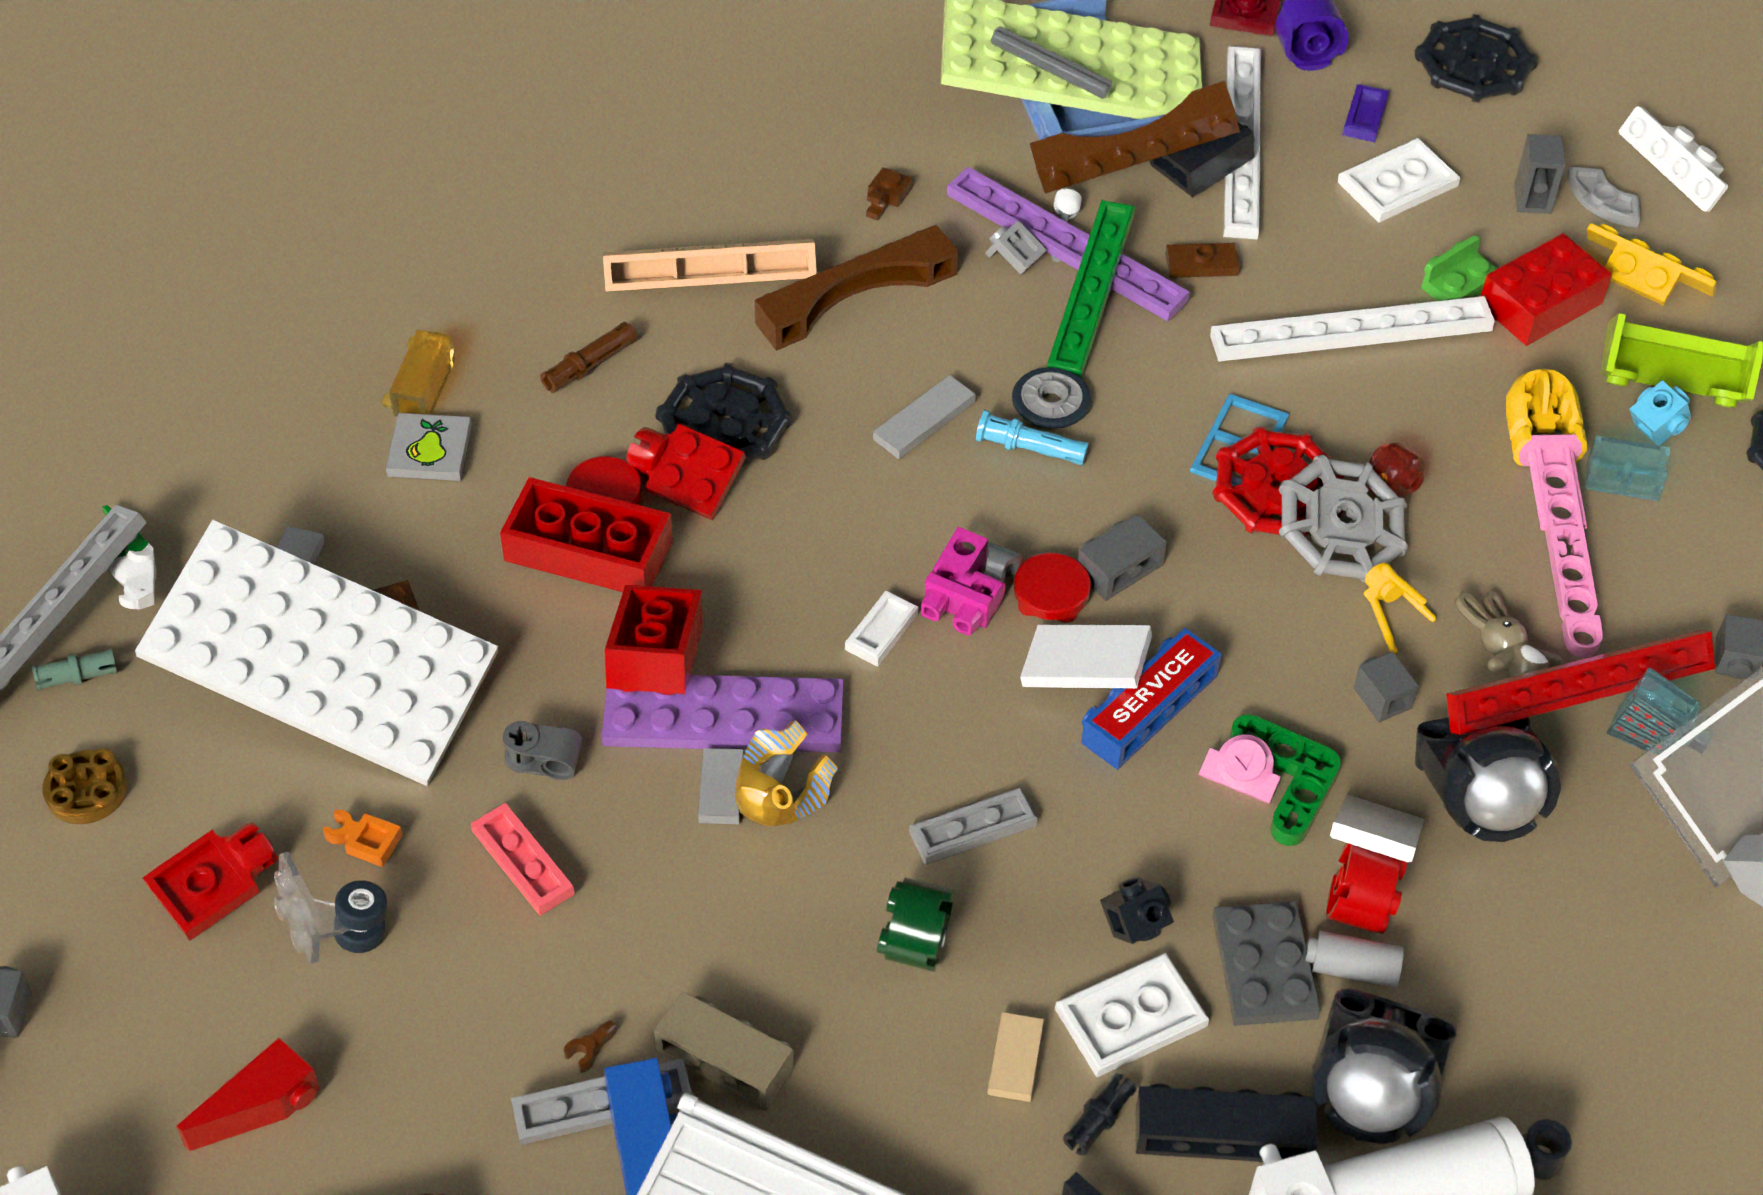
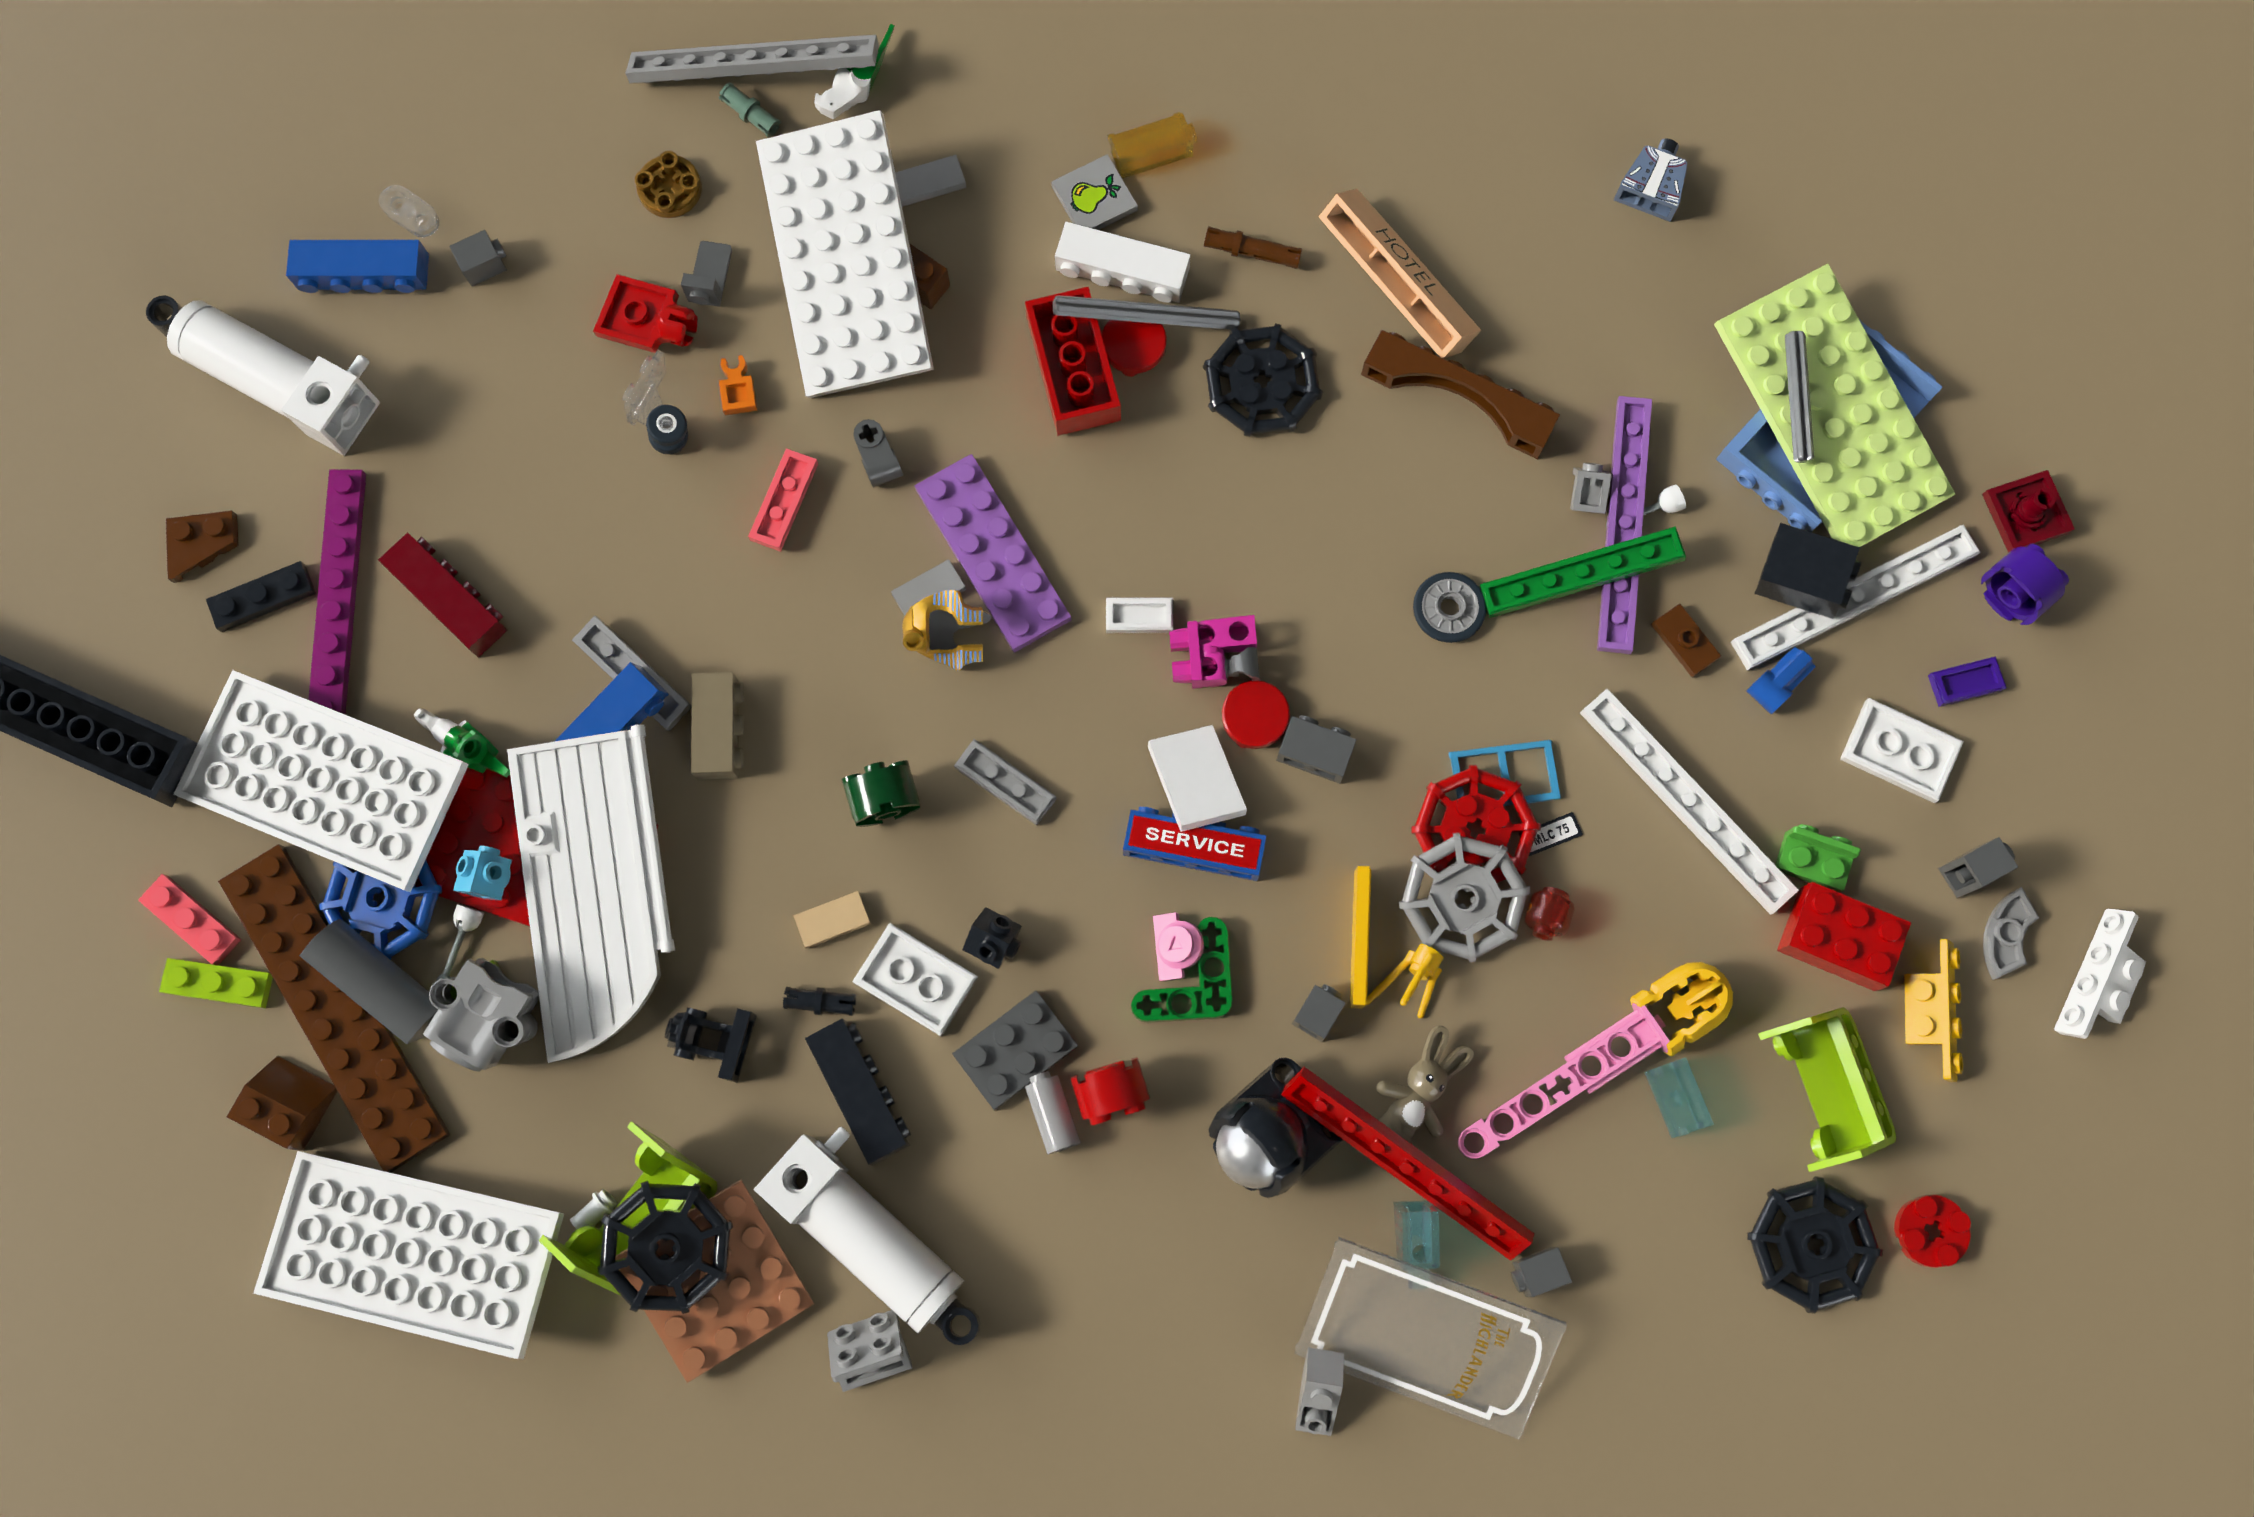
camera: 60 degrees right, 25 degrees up
(220, 800) = (709, 274): none -> dark grey bracket
(257, 1096) = (517, 462): red slope -> none
(518, 452) = (1122, 262): none -> white brick
(590, 452) = (1145, 312): none -> dark grey axle
(590, 1045) = (673, 638): reddish brown piece -> none
(654, 639) = (1004, 467): red brick -> none
(686, 468) = (1187, 386): red plate -> none
(772, 70) = (1654, 181): none -> sand blue torso
(887, 189) = (1589, 352): reddish brown plate -> none
(924, 417) = (1364, 524): light grey tile -> none
(1014, 435) = (1388, 601): medium azure pin -> none
(1073, 159) = (1818, 554): reddish brown arch -> none
(1286, 221) = (1777, 684): none -> blue piece
(1321, 431) = (1555, 833): none -> sticker
(1327, 615) = (1360, 937): none -> yellow tile
(1377, 828) = (1165, 1074): white tile -> none
(1380, 1066) = (960, 1175): black piece -> none
(1492, 62) = (2123, 727): black plate -> none
(1661, 412) = (1759, 1099): medium azure brick -> none

